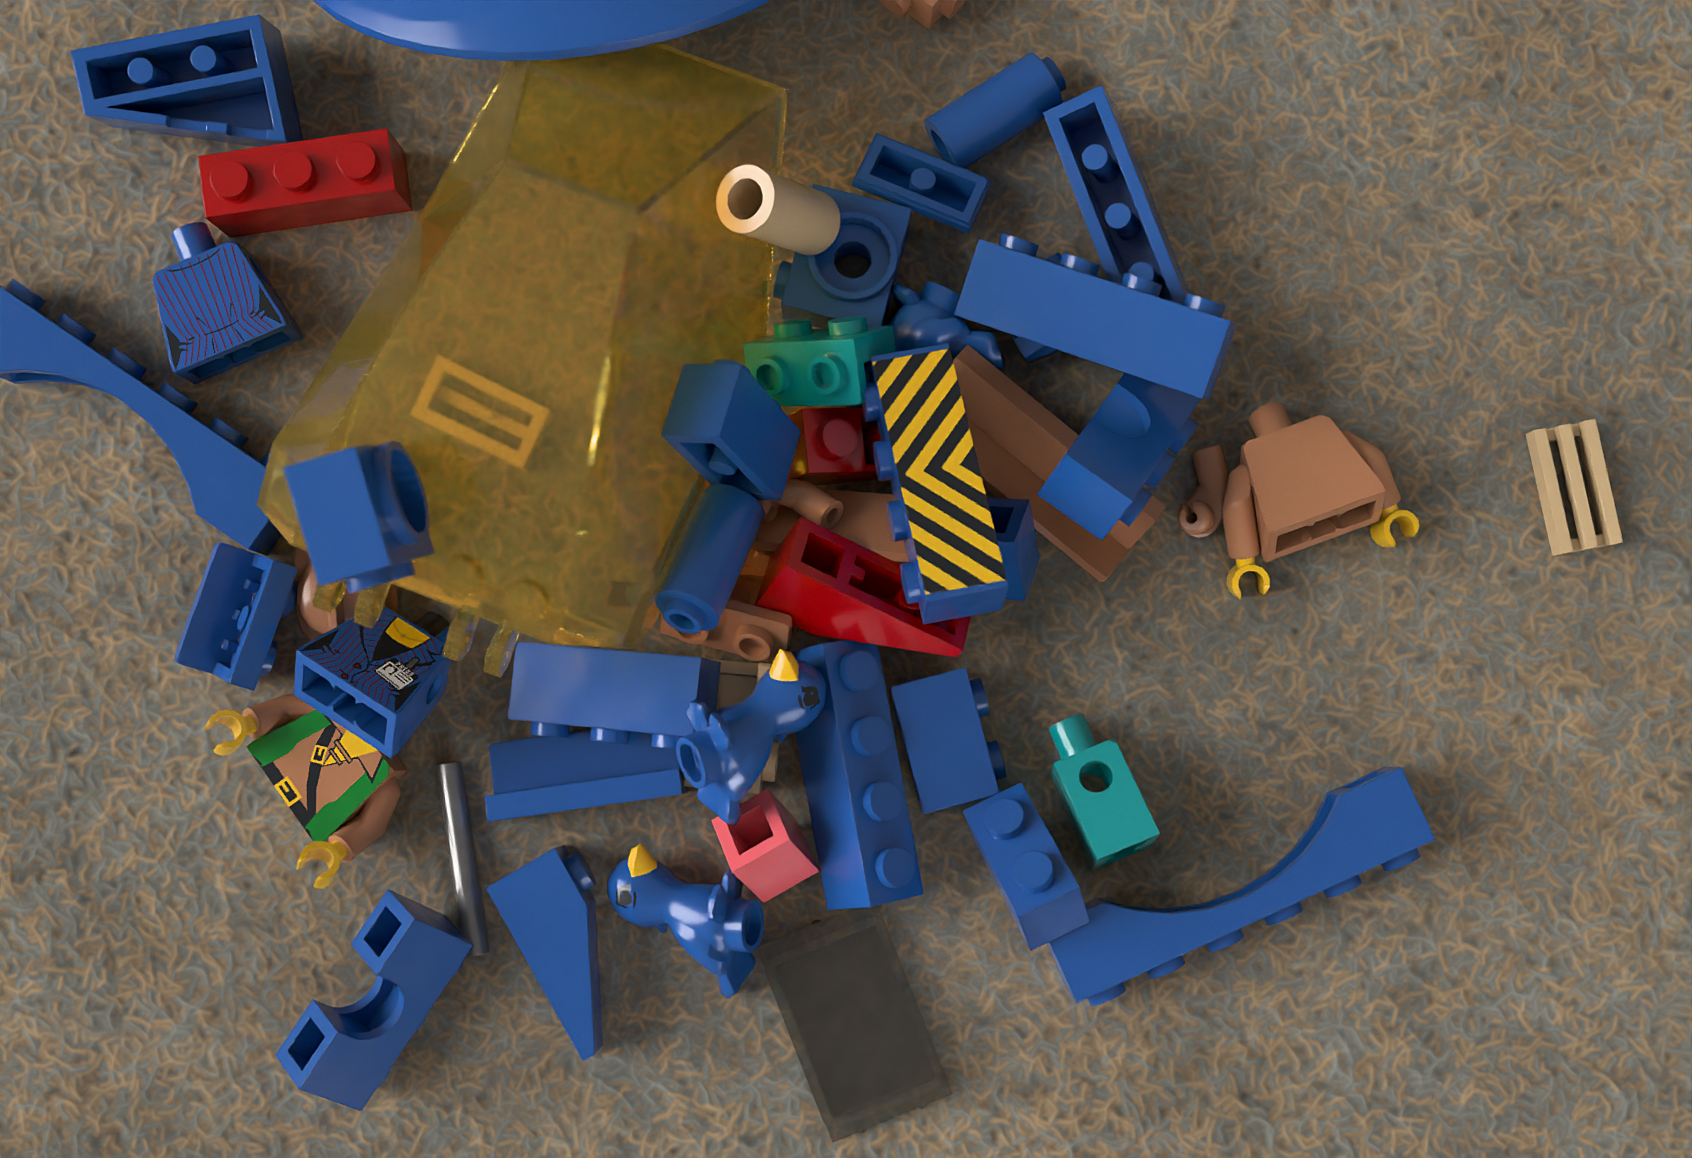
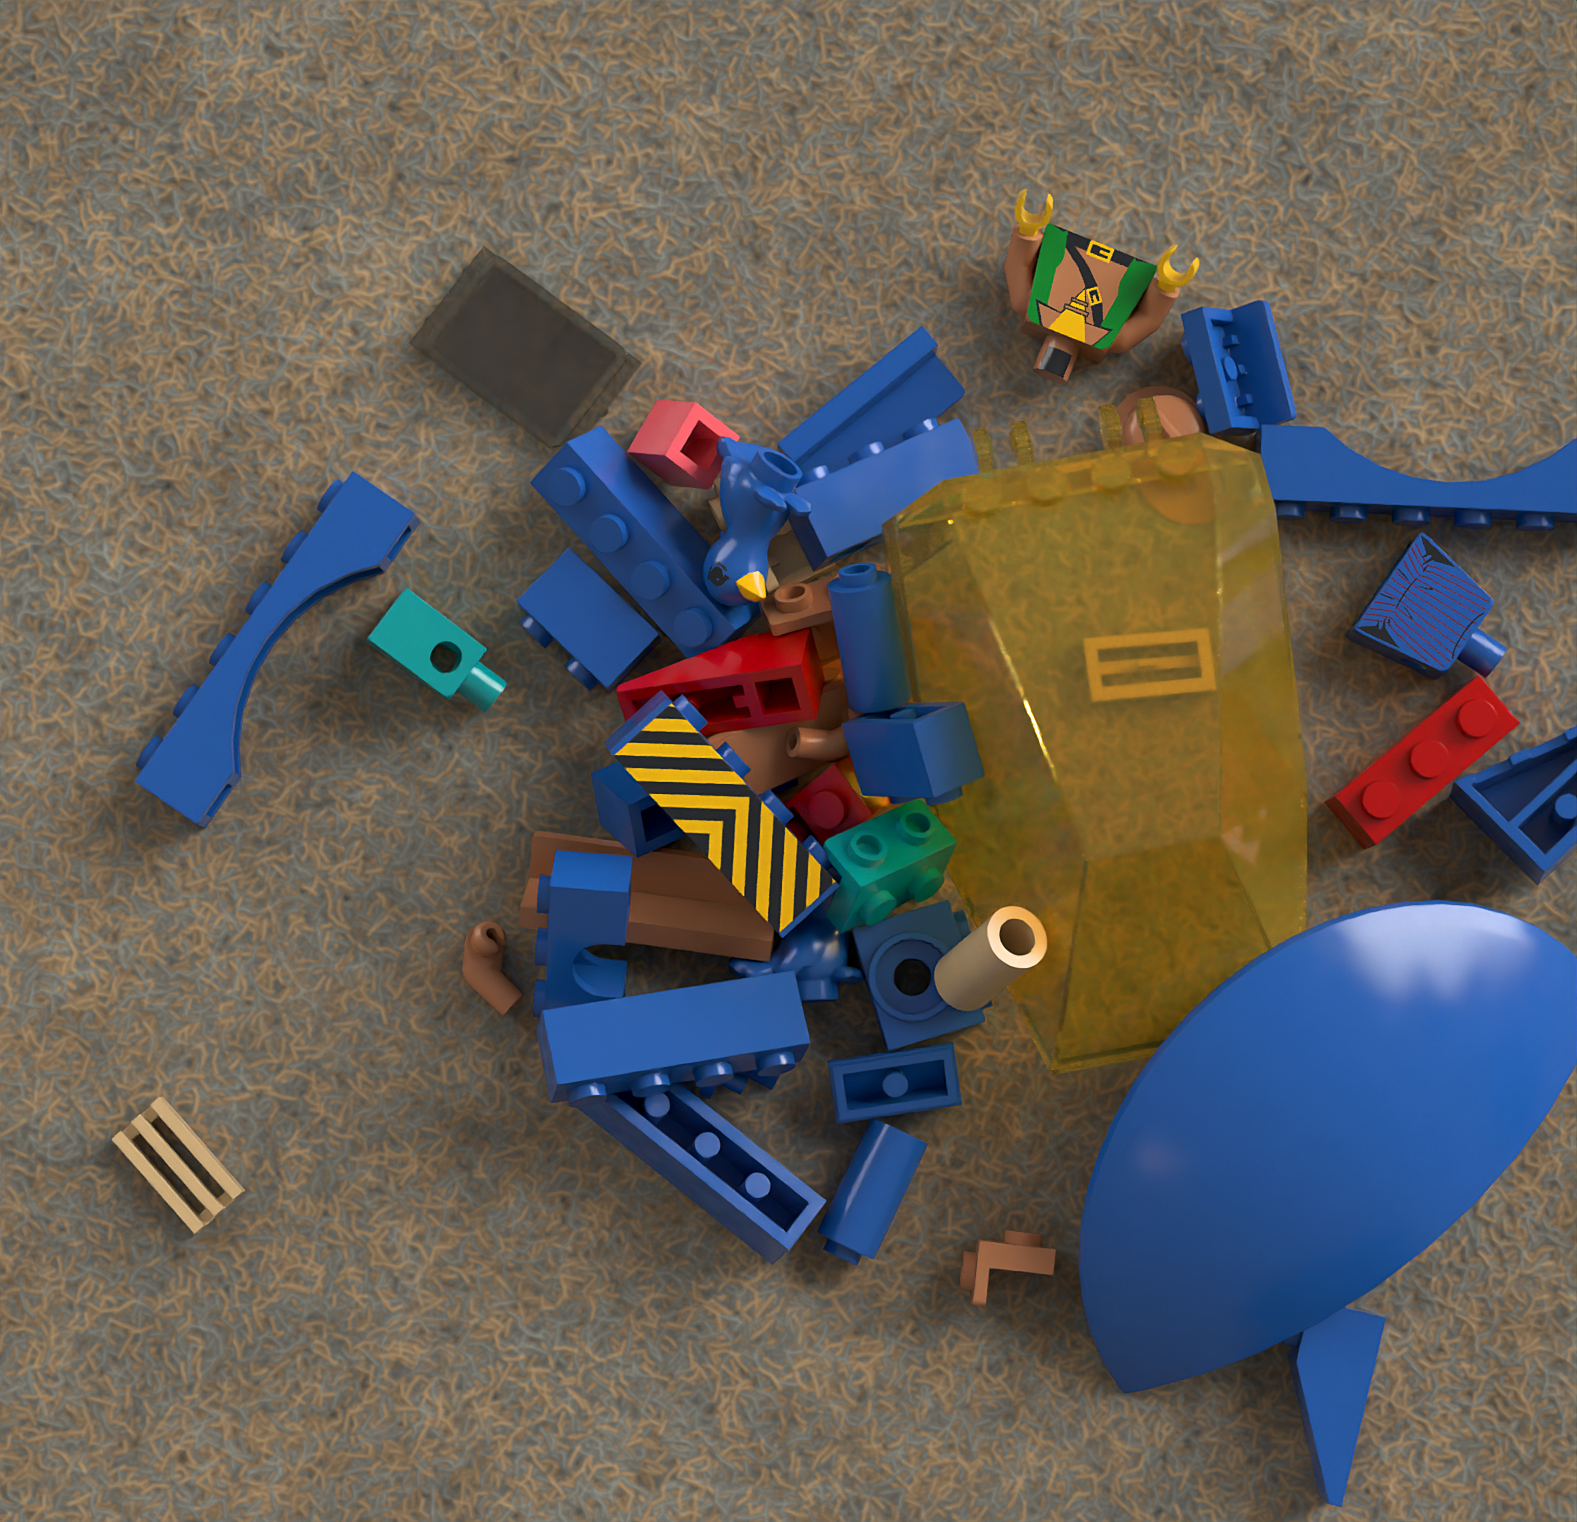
camera: 140 degrees right, 0 degrees up
(351, 1048) = (917, 86): blue arch -> none
(361, 514) = (1139, 476): blue brick -> none
(377, 677) = (1078, 372): blue torso -> none
(462, 856) = (928, 287): flat silver bar -> none
(556, 930) = (815, 277): blue slope -> none
(704, 917) = (696, 357): blue animal -> none
(1026, 866) = (459, 554): blue brick -> none
(1303, 489) = (410, 1014): nougat torso -> none

